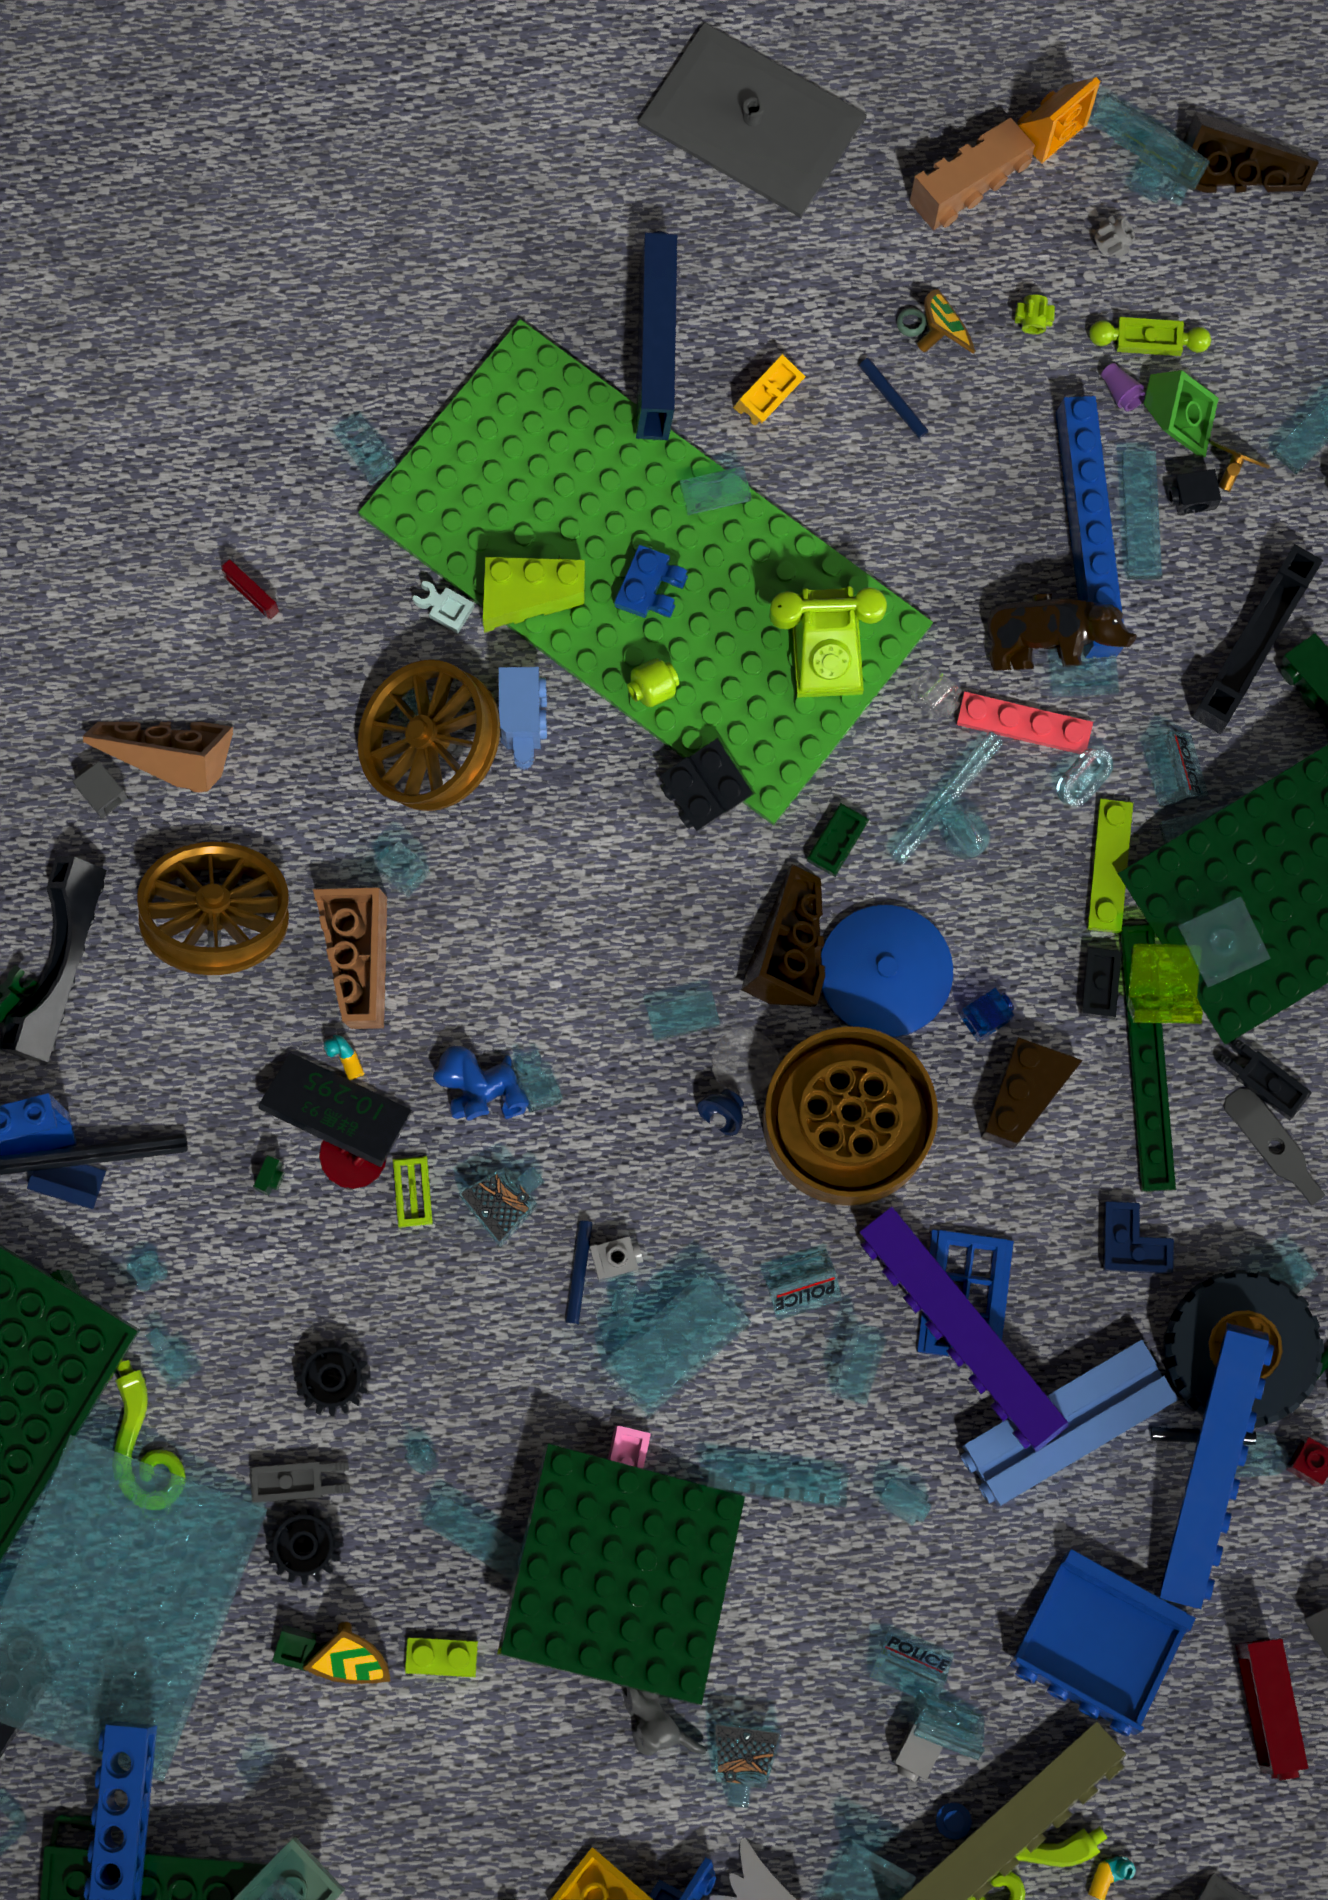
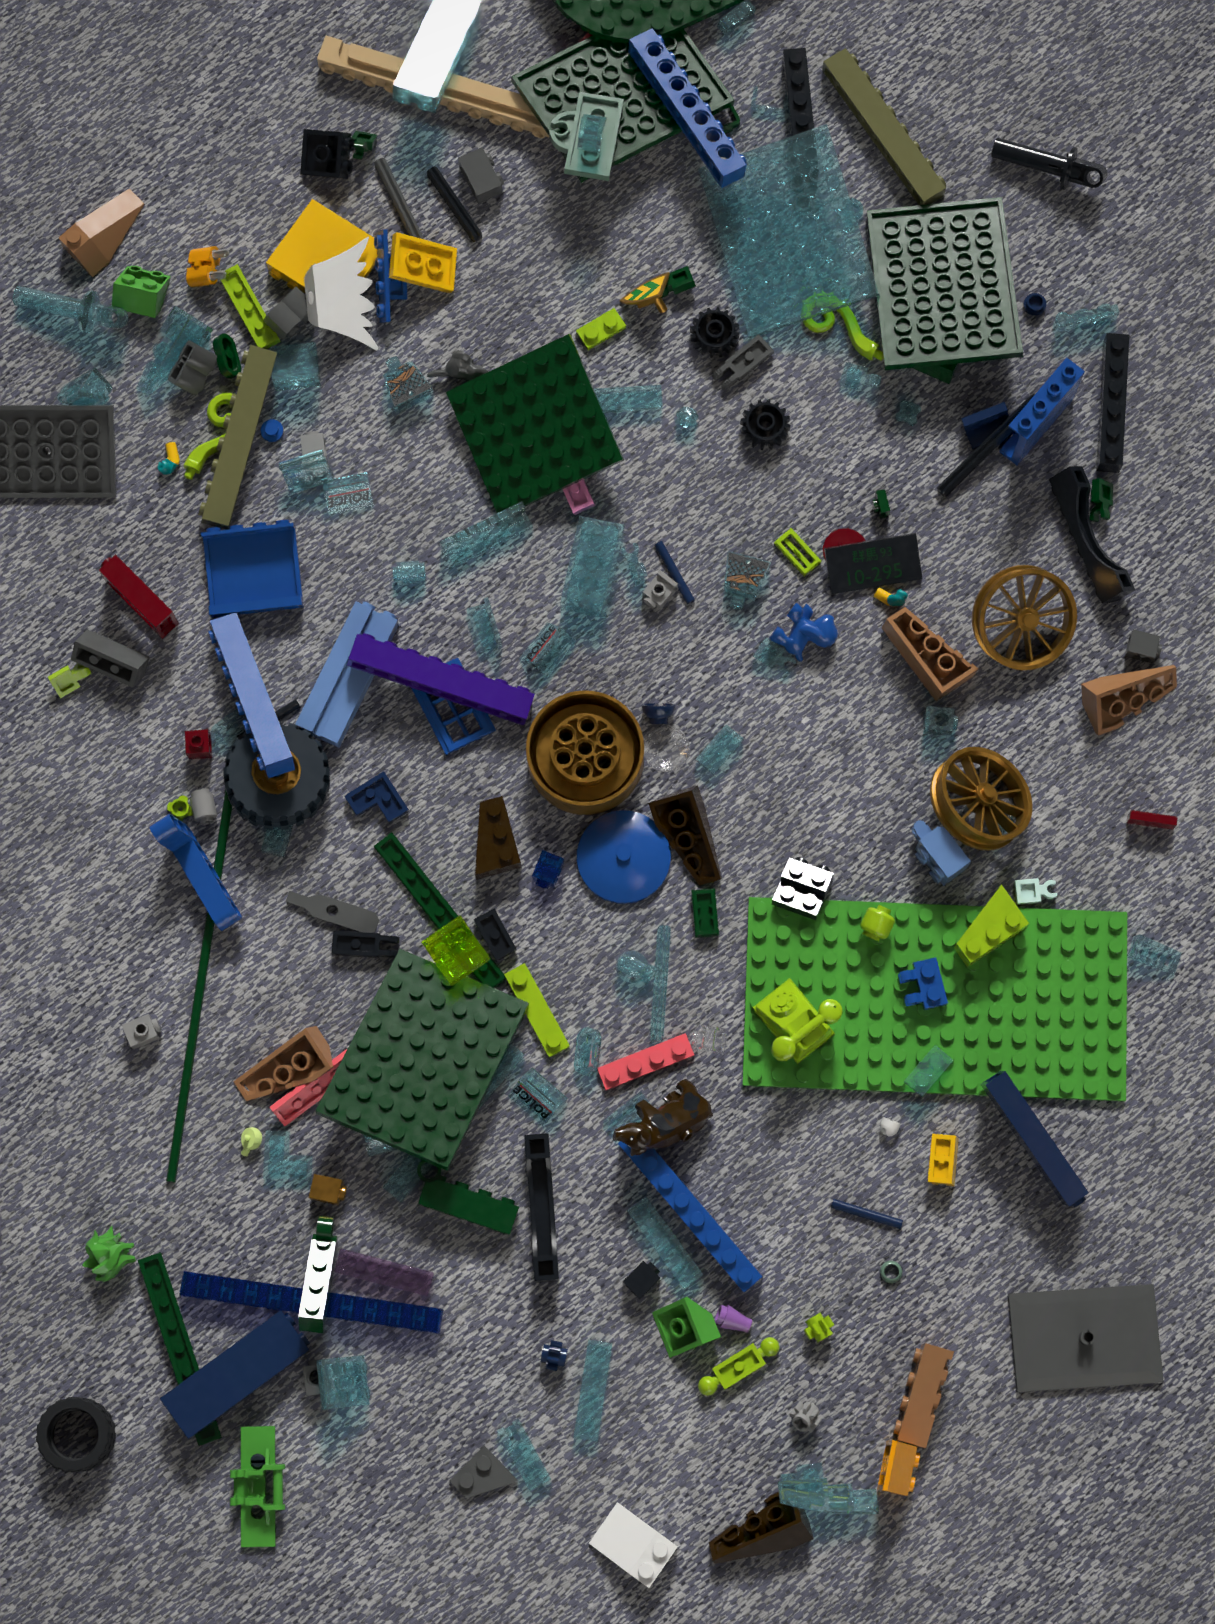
camera: 150 degrees right, 0 degrees up
(801, 463) = (889, 1127): none -> white hinge
(943, 321) = (870, 1282): shield -> none
(1224, 942) = (438, 993): clear light blue panel -> none
(1234, 466) = (630, 1318): pearl gold shield -> none

